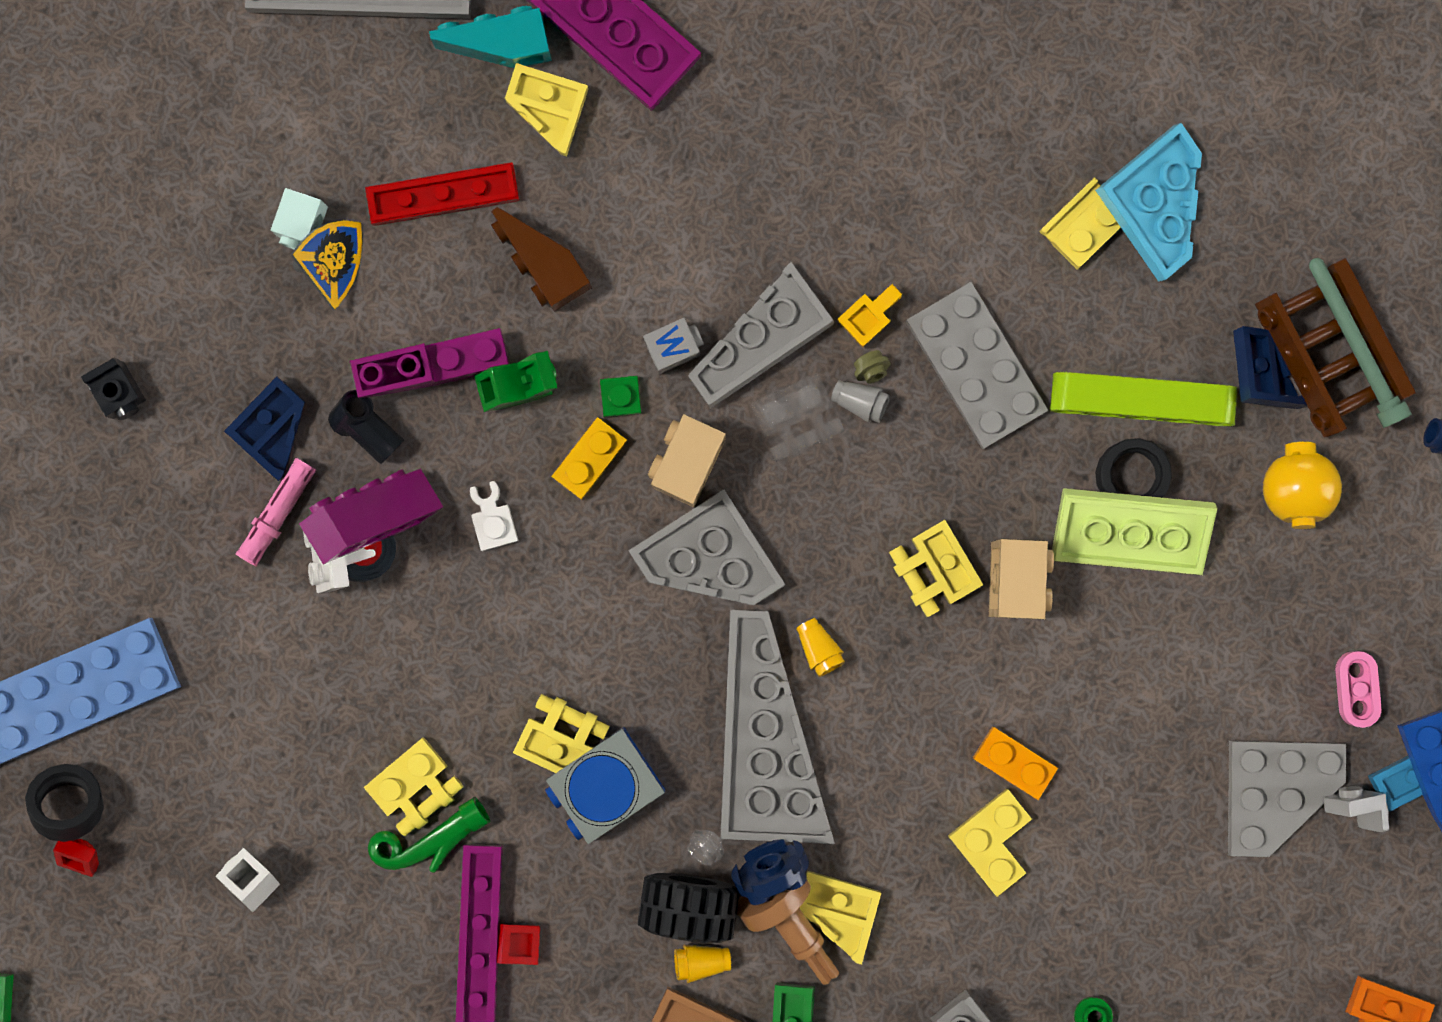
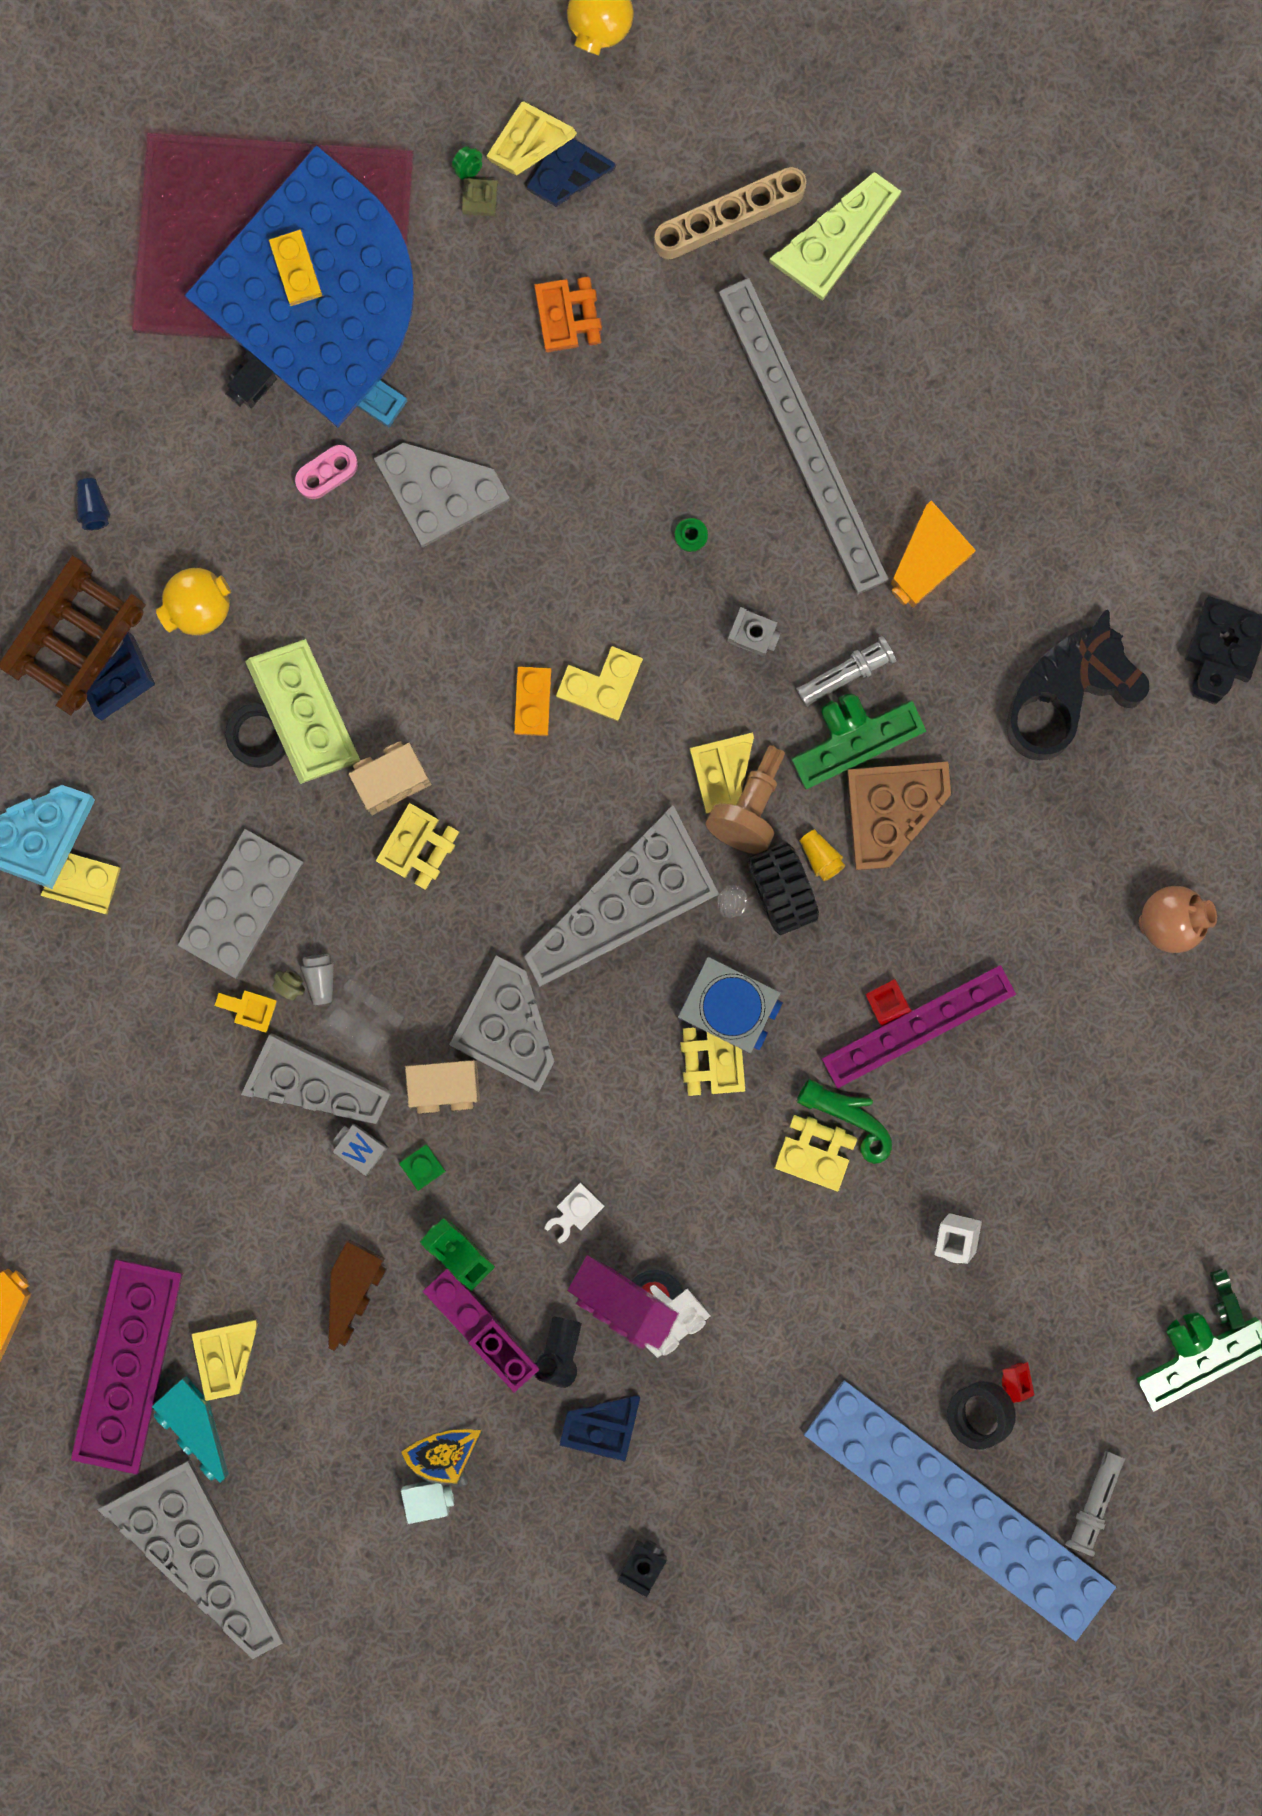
camera: 125 degrees left, 0 degrees up
(276, 511) = (665, 1384): bright pink pin -> none
(442, 194) = (342, 1400): red tile -> none
(589, 458) = (484, 1163): yellow plate -> none
(771, 870) = (719, 842): dark blue plate -> none
(819, 647) = (530, 900): yellow cone -> none
(1143, 399) = (194, 760): lime beam -> none
(1367, 805) = (411, 417): light grey bracket -> none
(1390, 407) = (95, 568): sand green piece -> none

